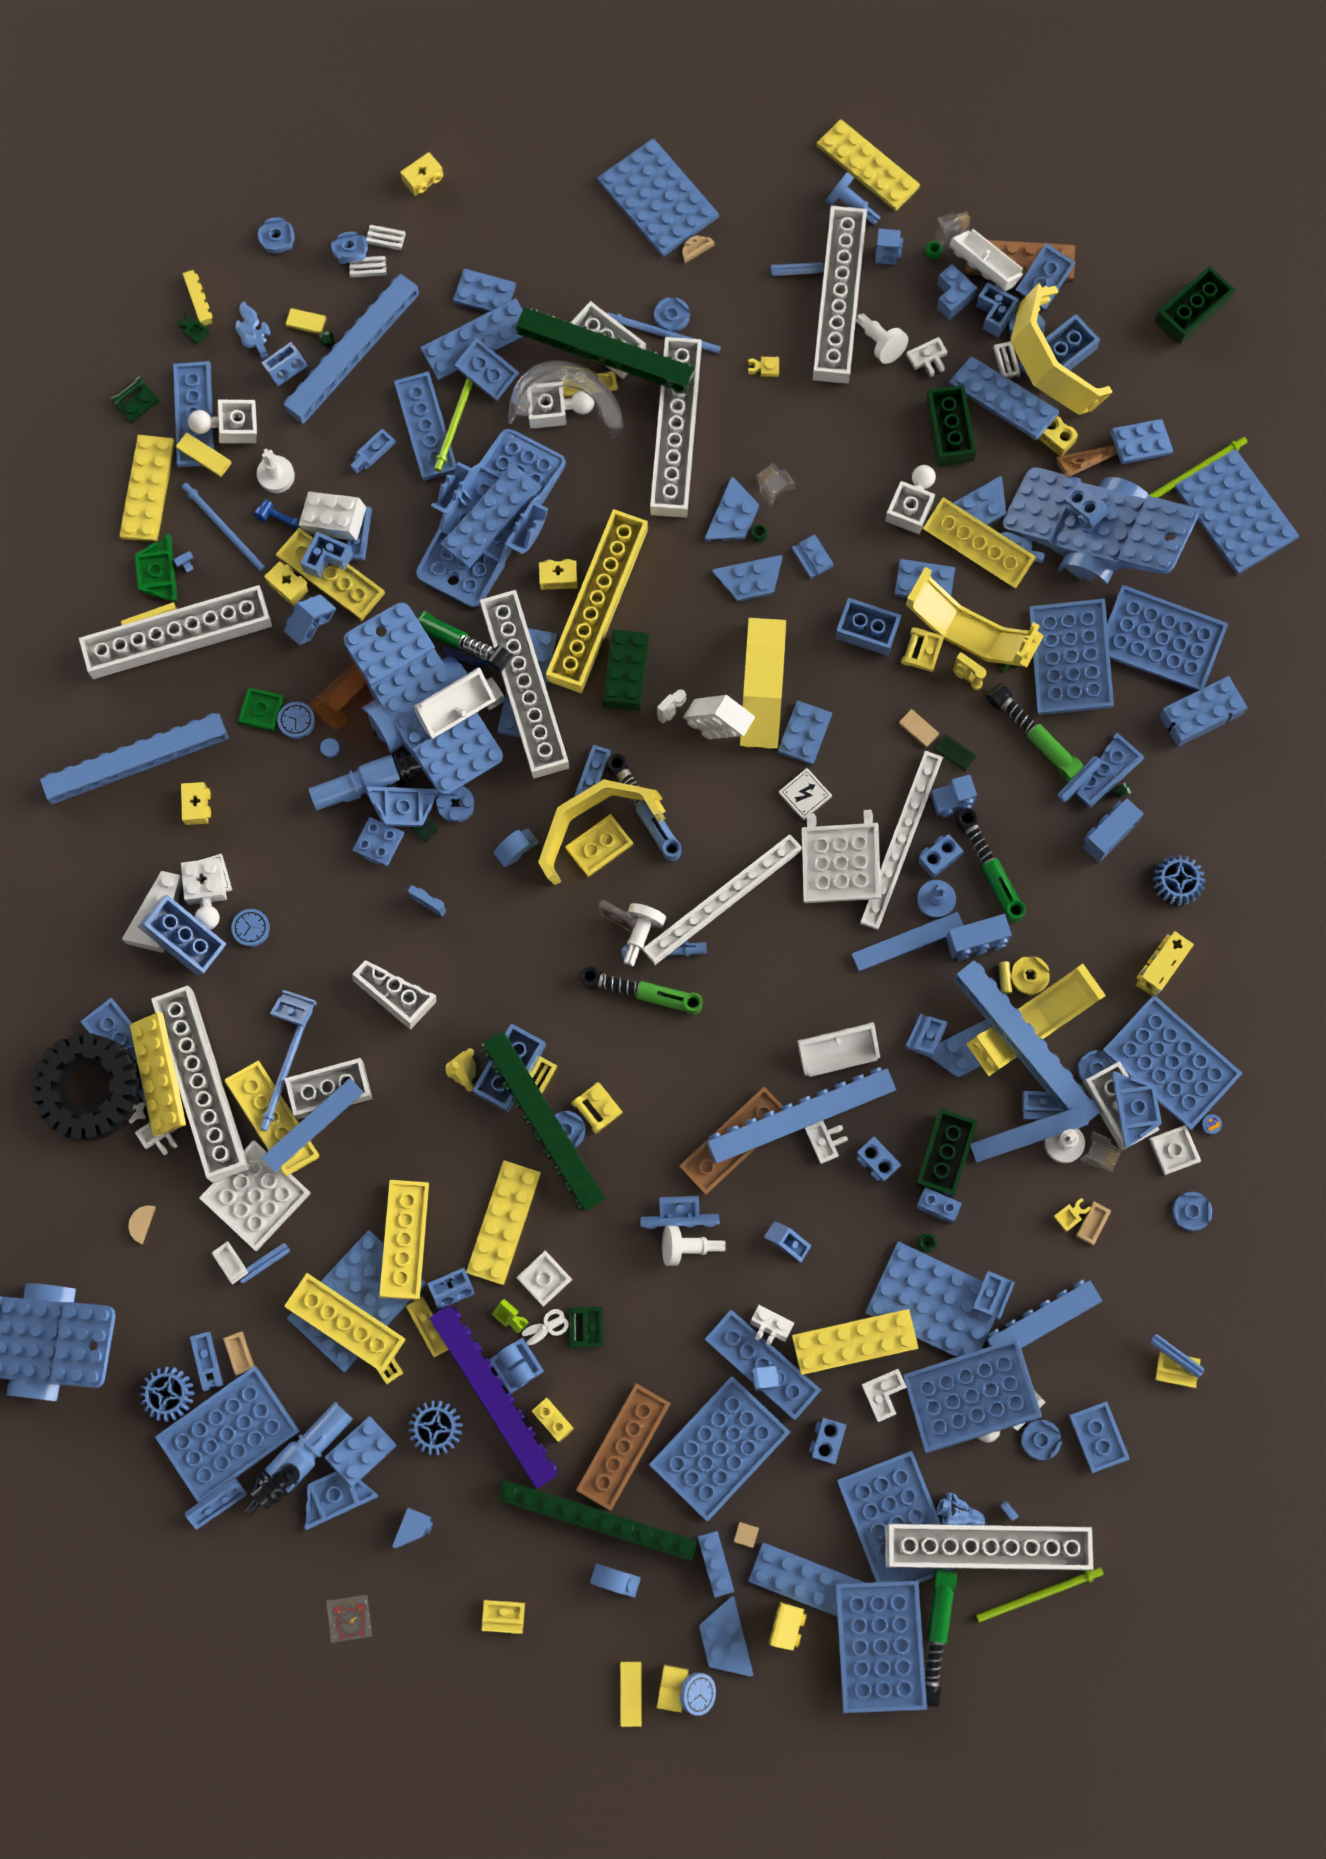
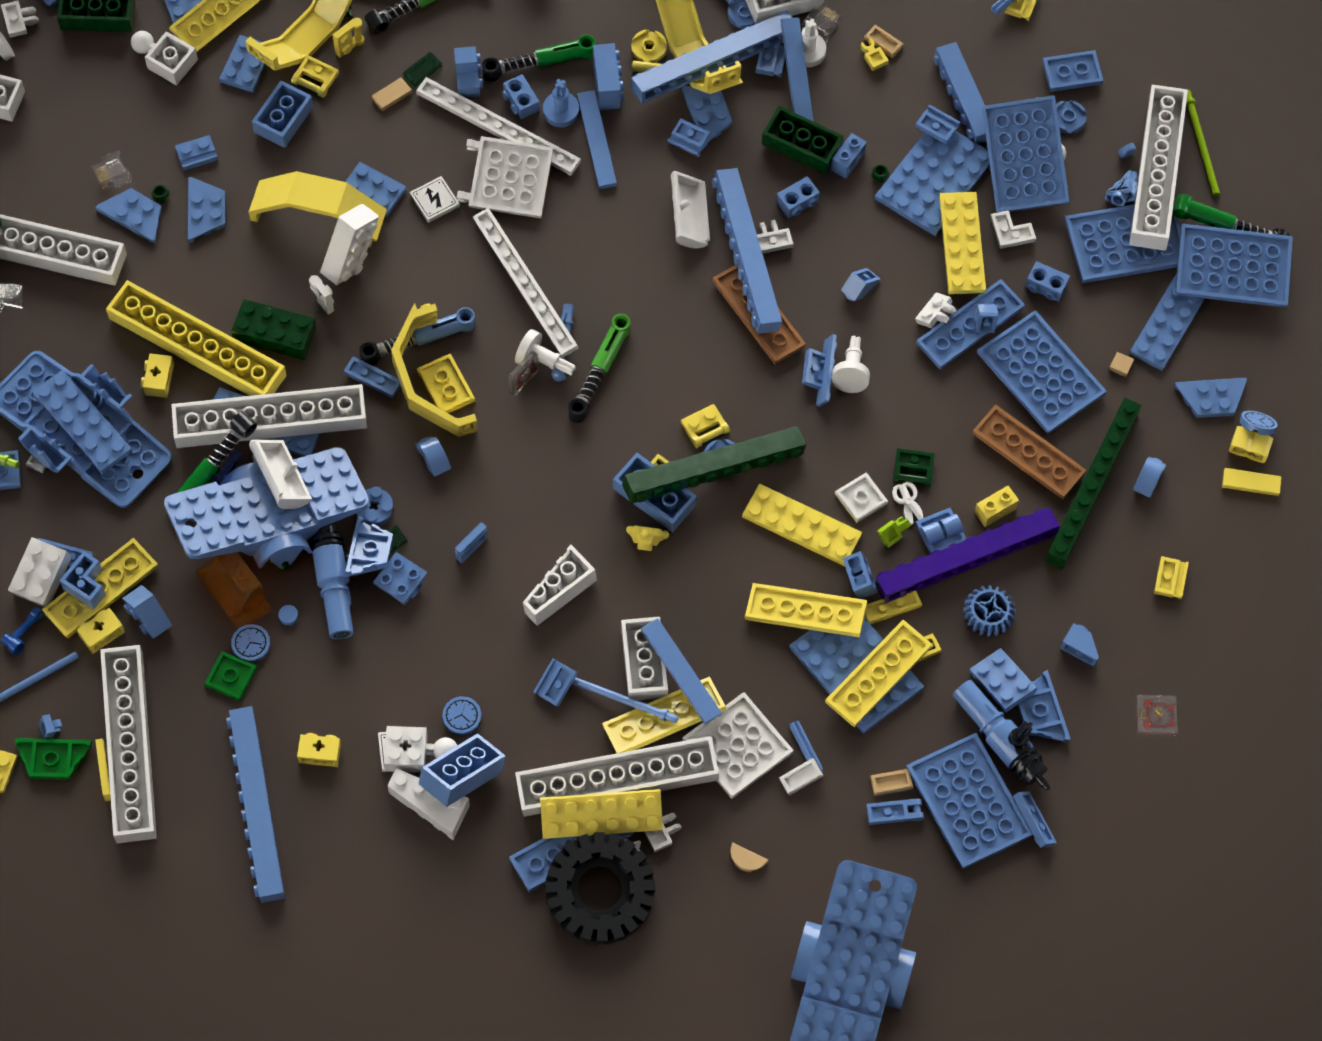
camera: 85 degrees left, 10 degrees down
(149, 1389) = (929, 855): medium blue gear -> none
(716, 1564) = (1146, 389): medium blue brick -> none
(786, 1626) = (1206, 342): light yellow slope -> none

